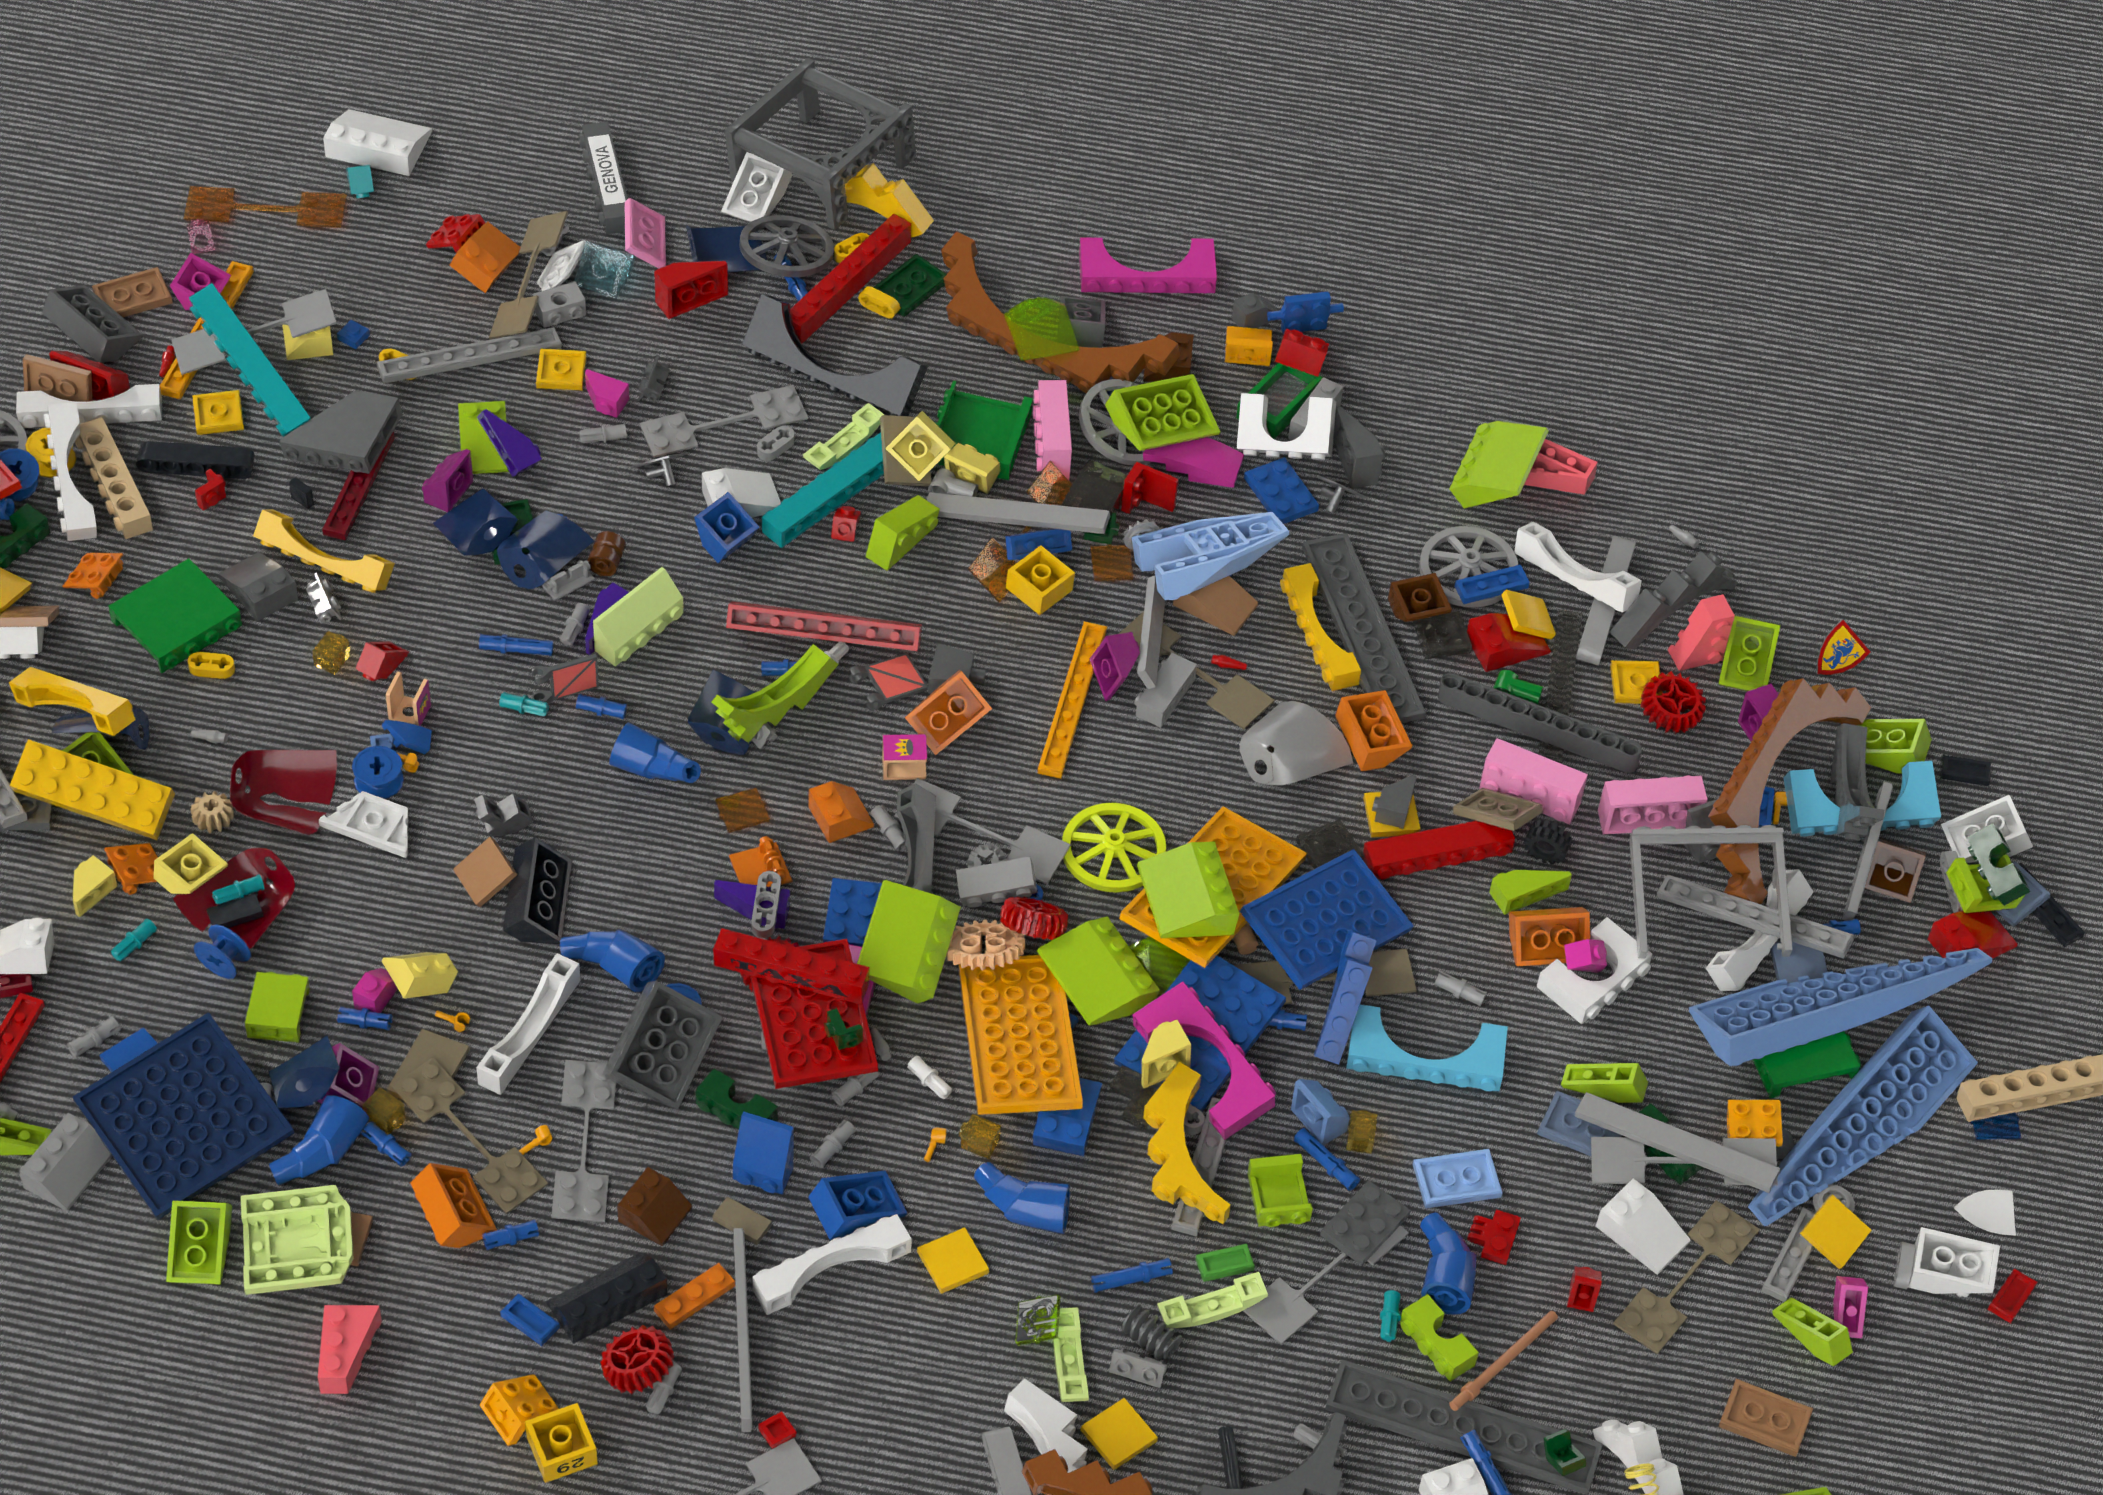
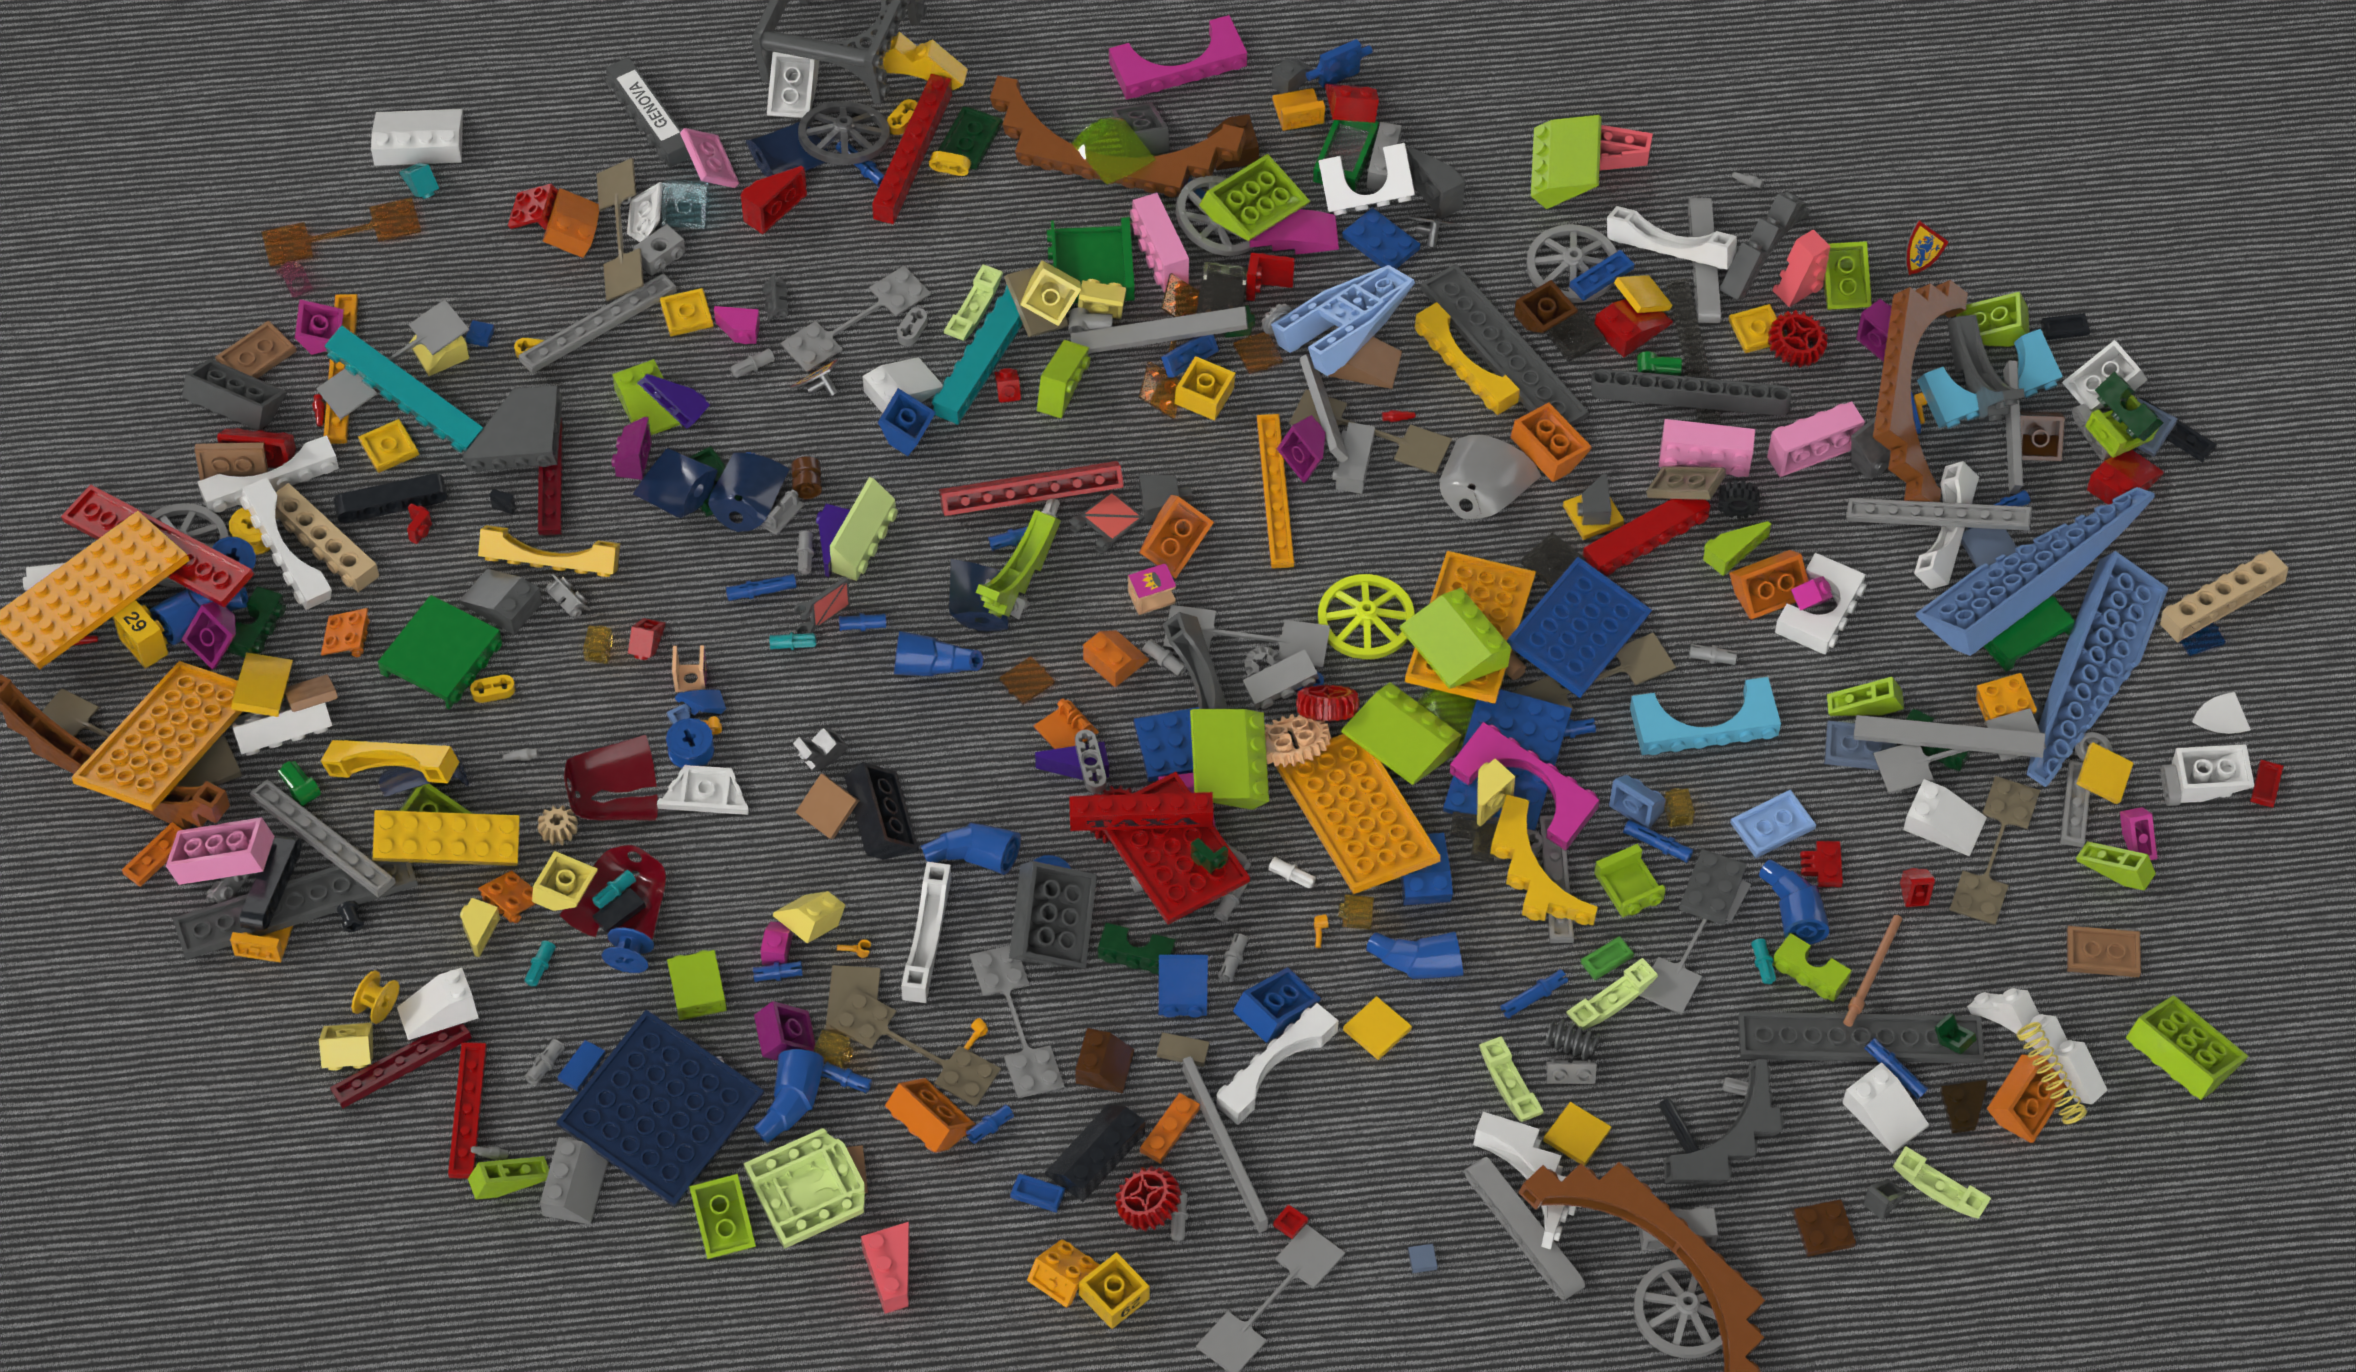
camera: 15 degrees left, 5 degrees up
(305, 1076) = (752, 1039): dark blue piece -> none
(775, 337) = (871, 225): arch -> none
(1038, 1320) = (1471, 1057): piece -> none
(1346, 996) = (1624, 685): blue arch -> none
(1714, 835) = (1888, 453): light grey piece -> none

